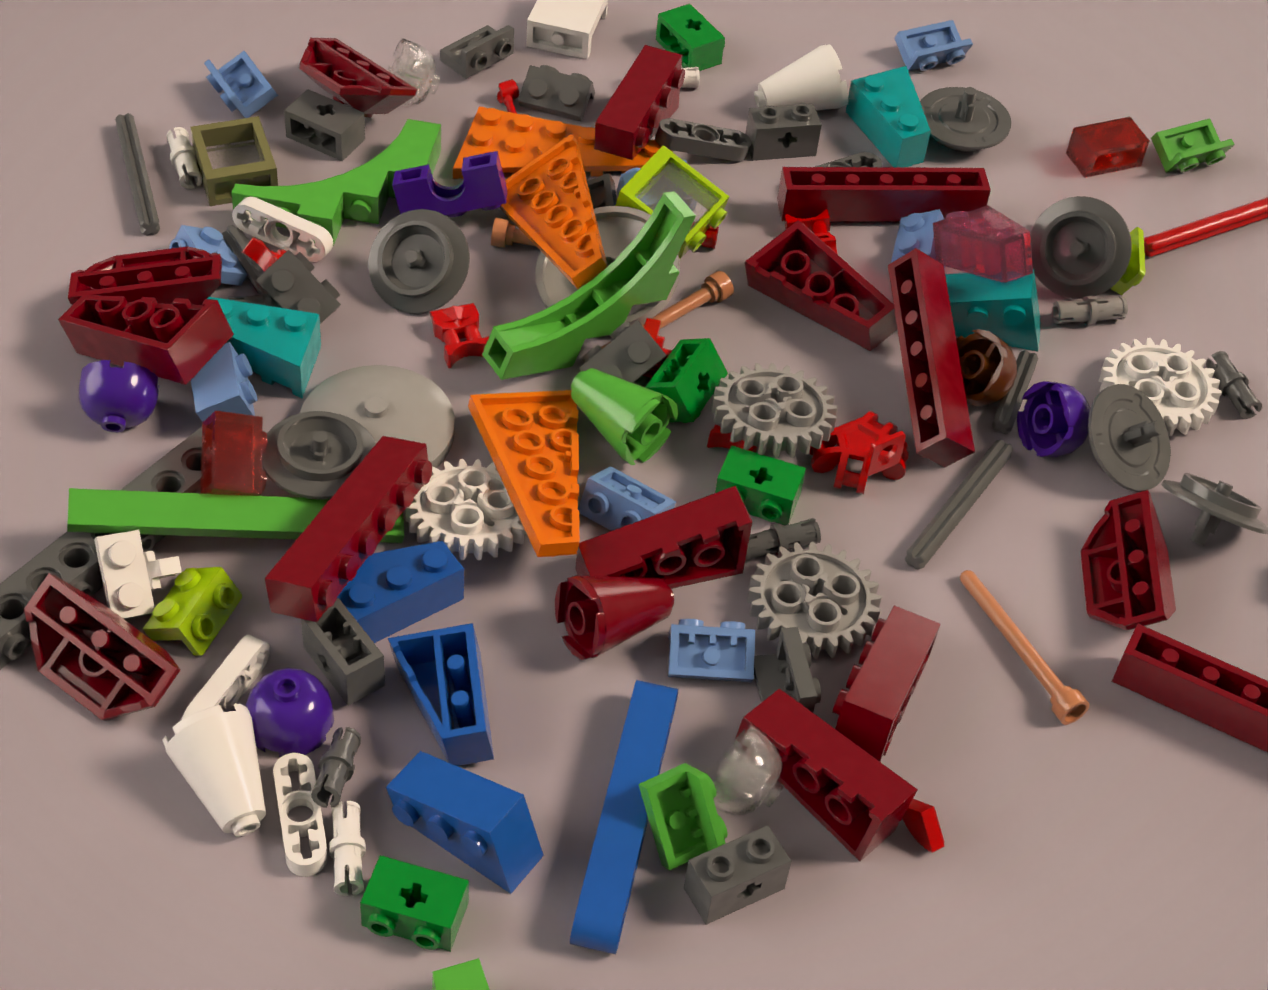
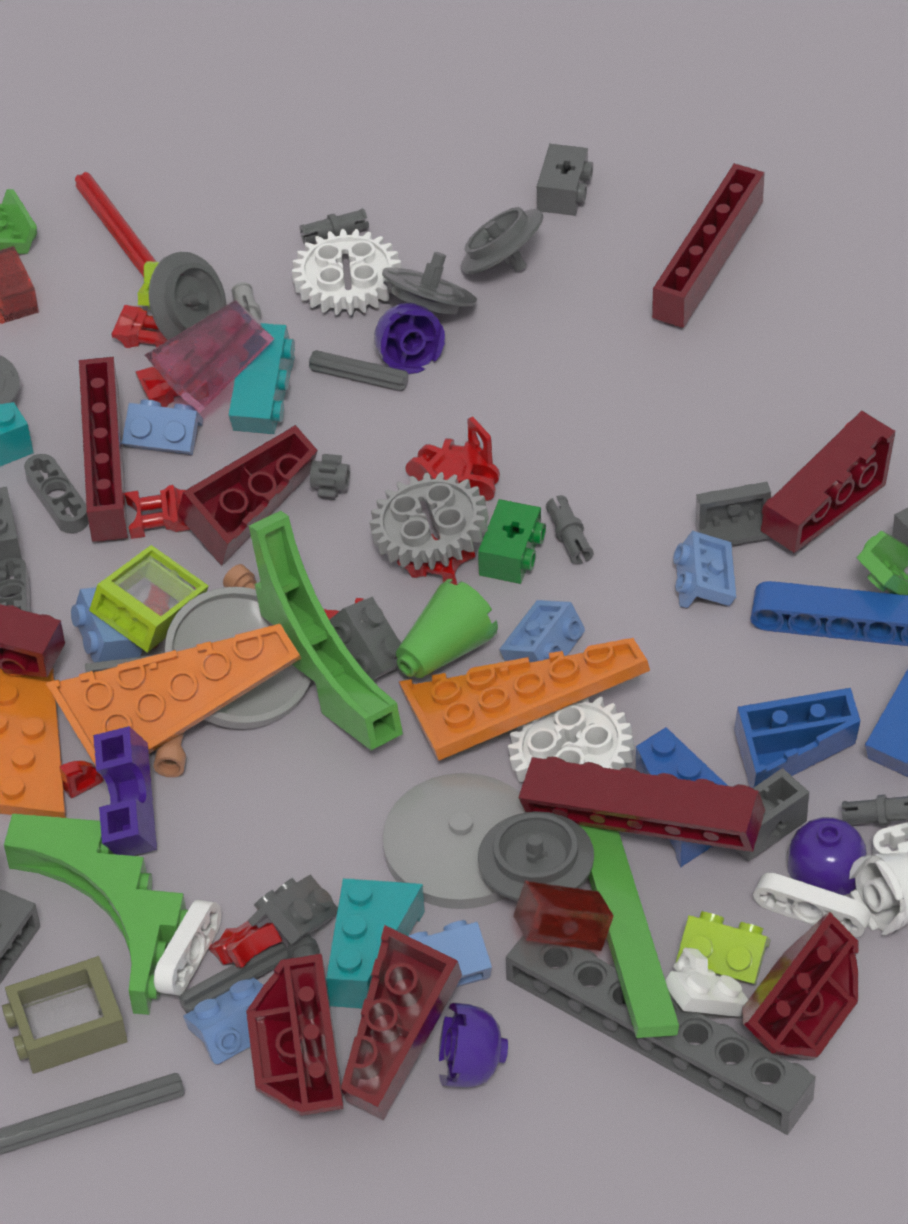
camera: 85 degrees left, 0 degrees up
(184, 158) = (56, 1070): white pin -> none
(419, 261) = (241, 811): dark grey piece -> none
(458, 323) = (309, 781): red piece -> none
(609, 610) = (687, 634): dark red cone -> none
(678, 546) = (600, 588): dark red wedge -> none
(689, 377) = (389, 588): green brick -> none
(748, 774) = (836, 537): clear cylinder -> none
(818, 595) = (637, 503): light grey gear -> none
(852, 352) = (330, 475): none -> dark grey gear
(885, 680) = (728, 450): dark red wedge -> none
(930, 359) = (353, 406): dark red brick -> none
(958, 504) = (504, 411): dark grey axle -> none
(986, 367) = (354, 381): reddish brown cylinder -> none
(1066, 702) = (714, 352): nougat piece -> none
(1128, 565) = (578, 301): dark red wedge -> none

